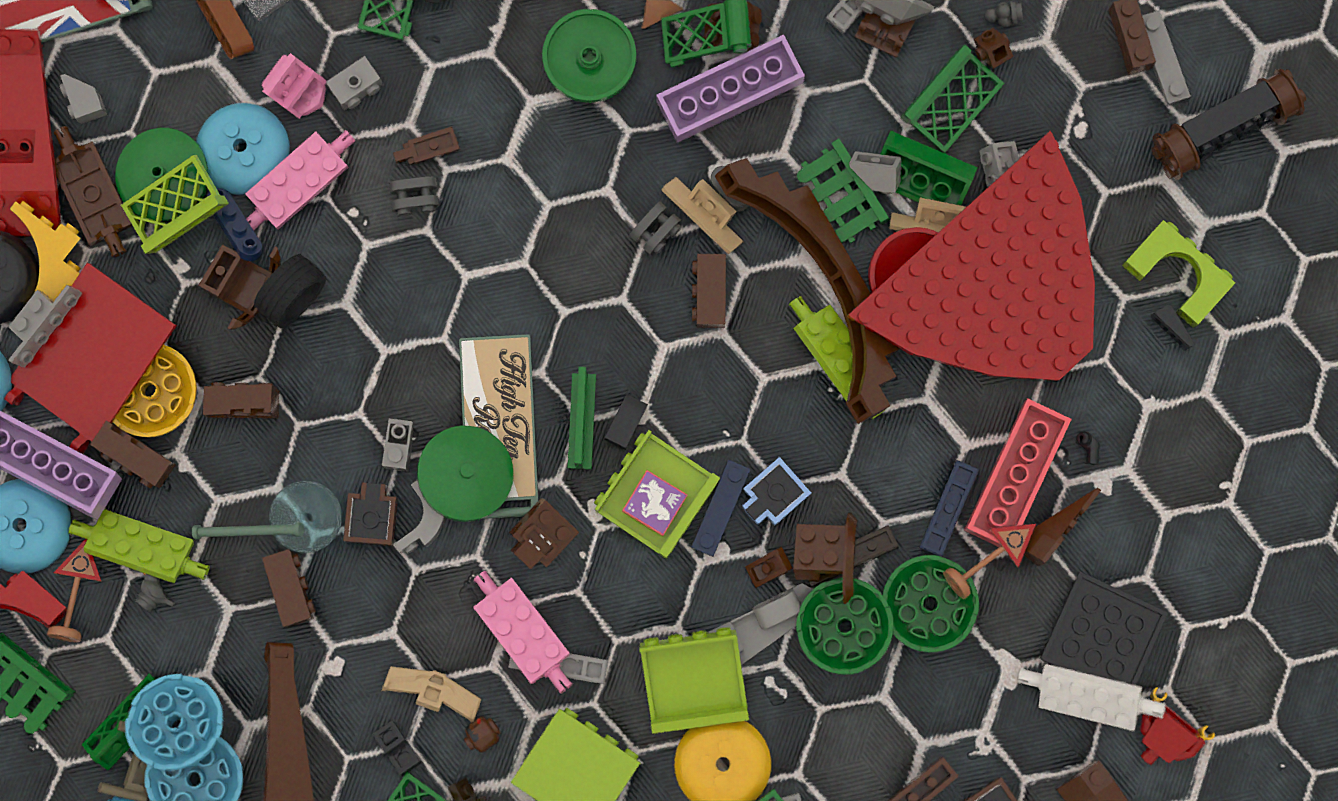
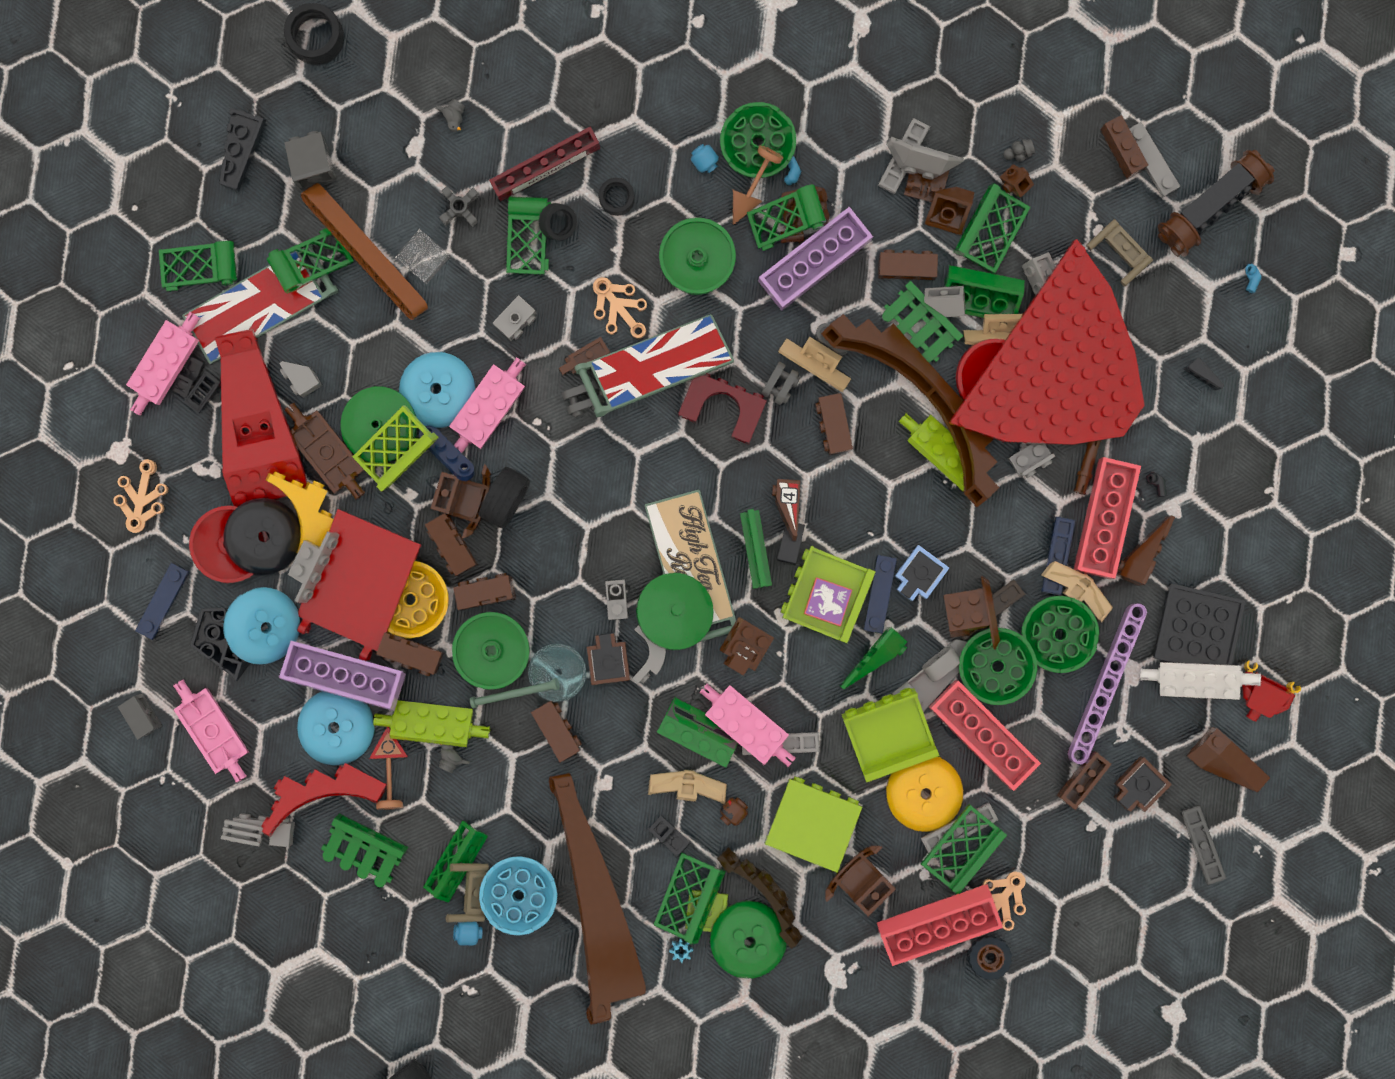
camera: 15 degrees left, 5 degrees up
(159, 706) = (476, 851): medium azure brick -> none
(213, 335) = (450, 545): none -> reddish brown wedge
(231, 473) = (490, 650): none -> green dish
(295, 86) = (467, 331): bright pink piece -> none
(459, 627) = (697, 732): none -> green slope
(482, 95) = (618, 305): none -> light nougat plant
(510, 172) = (656, 364): none -> flag
(562, 214) = (706, 387): none -> dark red arch
(632, 370) = (787, 501): none -> slope
(709, 576) = (882, 651): none -> green wedge
(713, 59) = (794, 238): none -> reddish brown pin
(768, 567) = (928, 632): reddish brown slope -> none
(810, 707) = (984, 735): none -> coral brick
(840, 120) = (907, 265): none -> reddish brown brick
(905, 65) = (950, 209): none -> reddish brown slope
(940, 383) = (1031, 458): none -> light grey bracket
(966, 551) = (1079, 587): none -> tan plate
(986, 670) = (1114, 676): none -> lavender beam
(1003, 415) = (1084, 474): none -> reddish brown pin
(1012, 540) = (1114, 571): nougat piece -> none
(1109, 155) = (1125, 247): none -> dark tan plate
(1211, 281) = (1226, 332): lime arch -> none
(1258, 222) = (1254, 277): none -> dark azure arm

